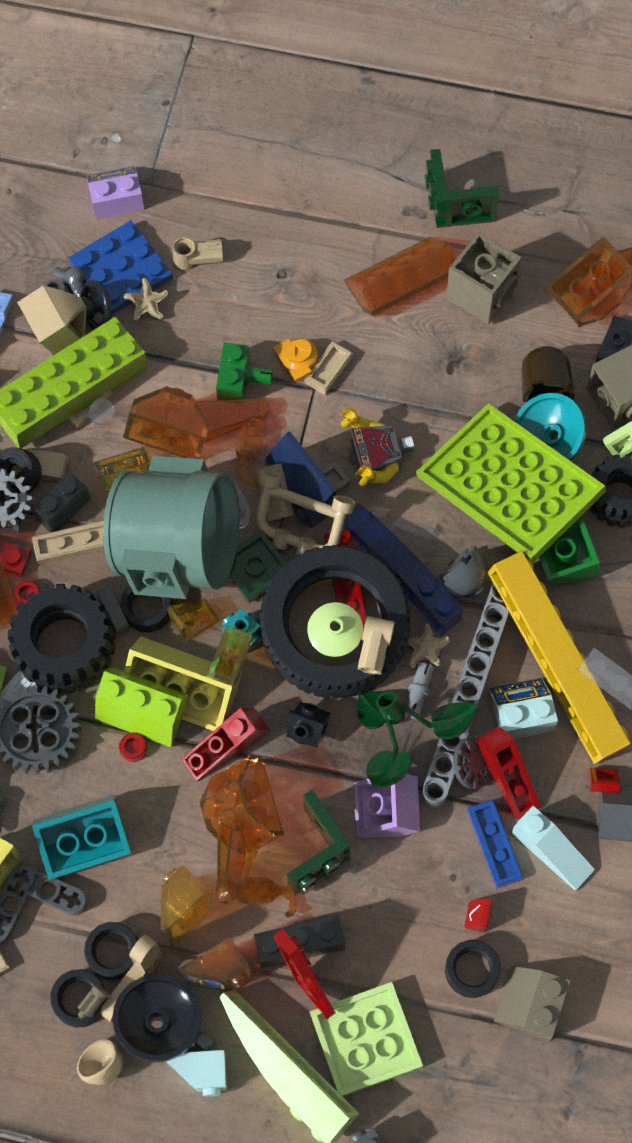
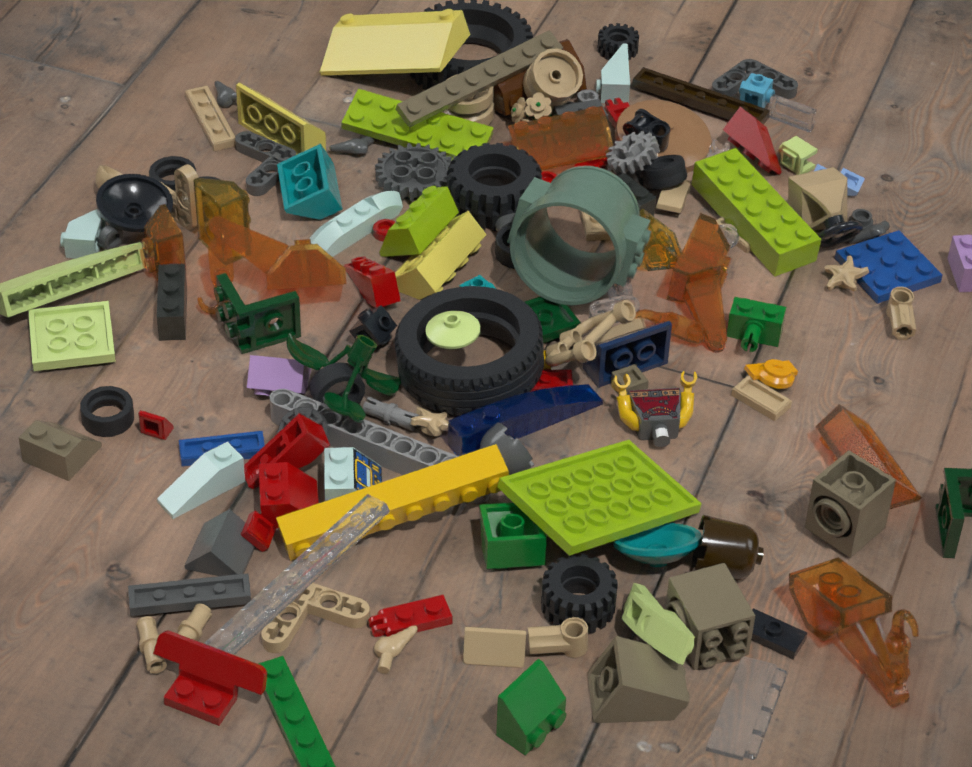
camera: 95 degrees right, 25 degrees down
(93, 1000) = (164, 171): dark tan piece -> none
(134, 779) = (356, 222): none -> light aqua brick
(191, 618) = (497, 266): clear yellow slope -> none
(230, 656) = (443, 271): clear yellow slope -> none
(302, 973) = (138, 285): red wing -> none
(376, 638) = (435, 349): tan piece -> none
(413, 740) = (334, 374): none -> black tyre
(556, 763) = (284, 490): none -> red slope

